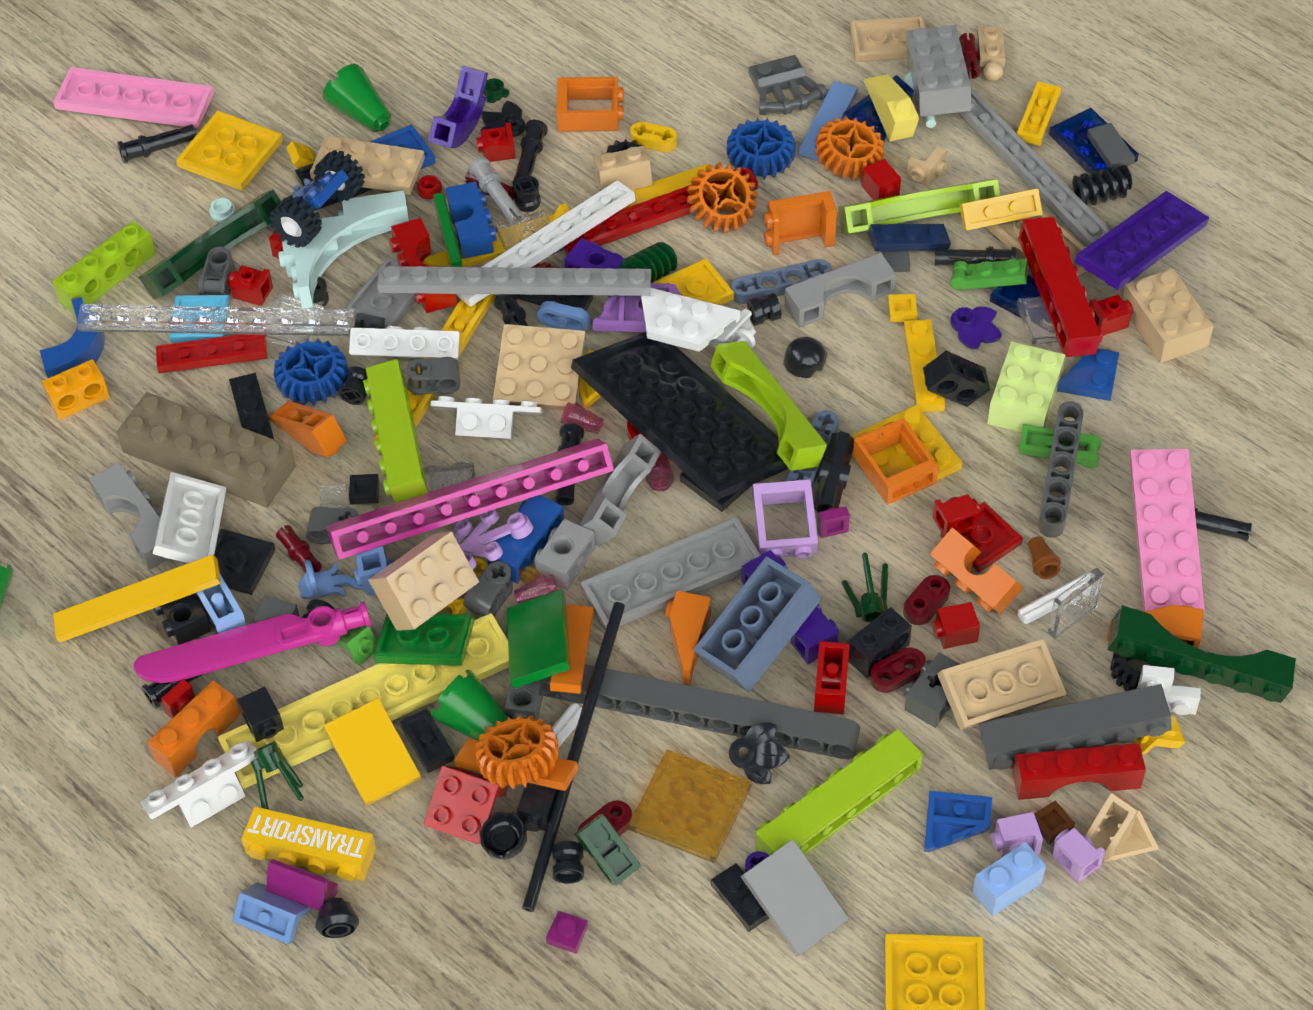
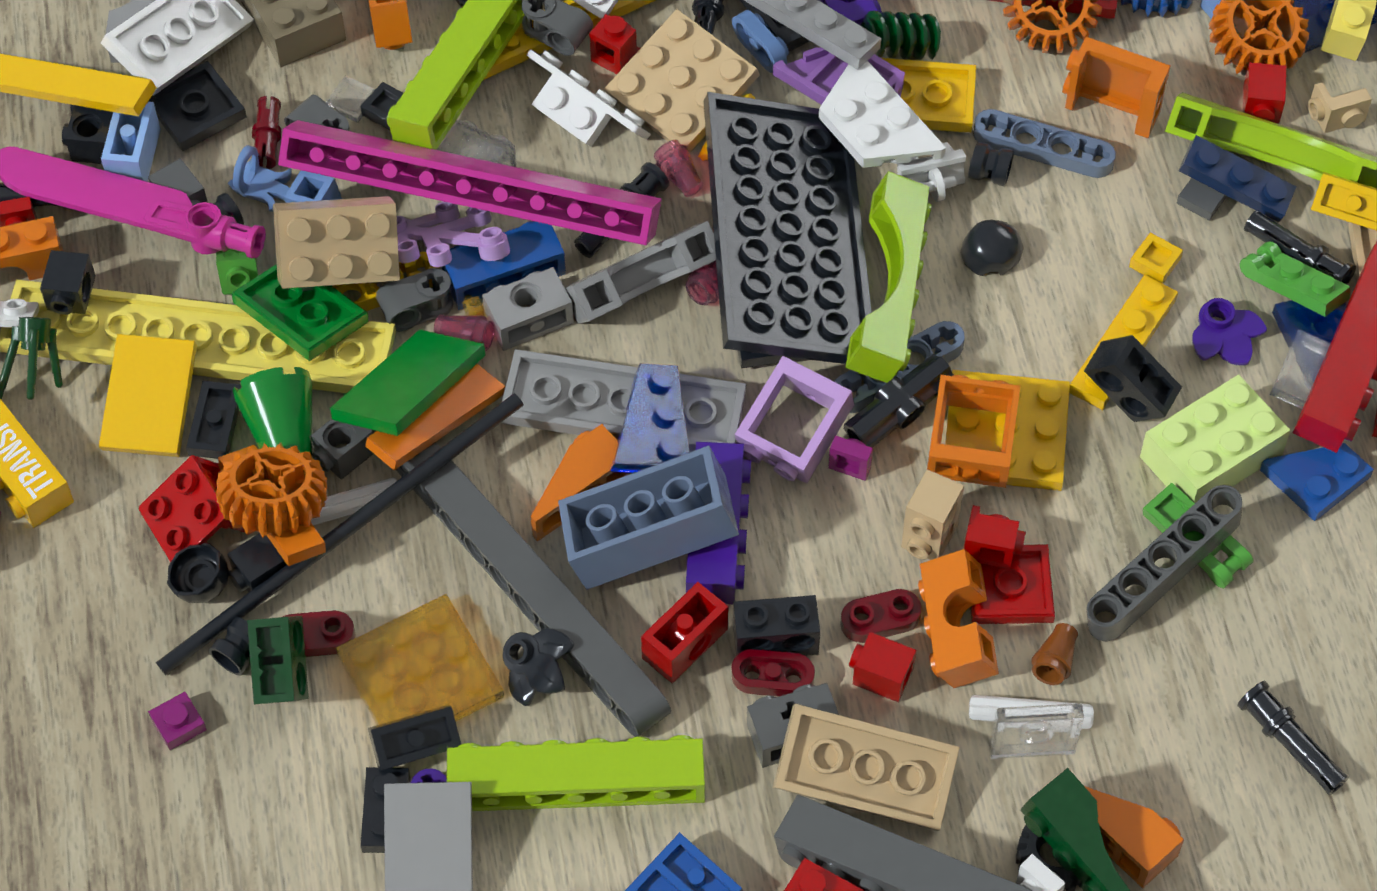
camera: 35 degrees right, 5 degrees up
(477, 362) = (613, 34): none -> red brick
(710, 572) = (653, 421): none -> clear blue wing
(728, 841) = (414, 737): none -> black plate
(867, 277) = (1143, 195): light grey arch -> none
(871, 603) = (810, 578): dark green plant -> none
(914, 523) = (932, 516): none -> tan brick
(1166, 528) = (1227, 716): bright pink plate -> none

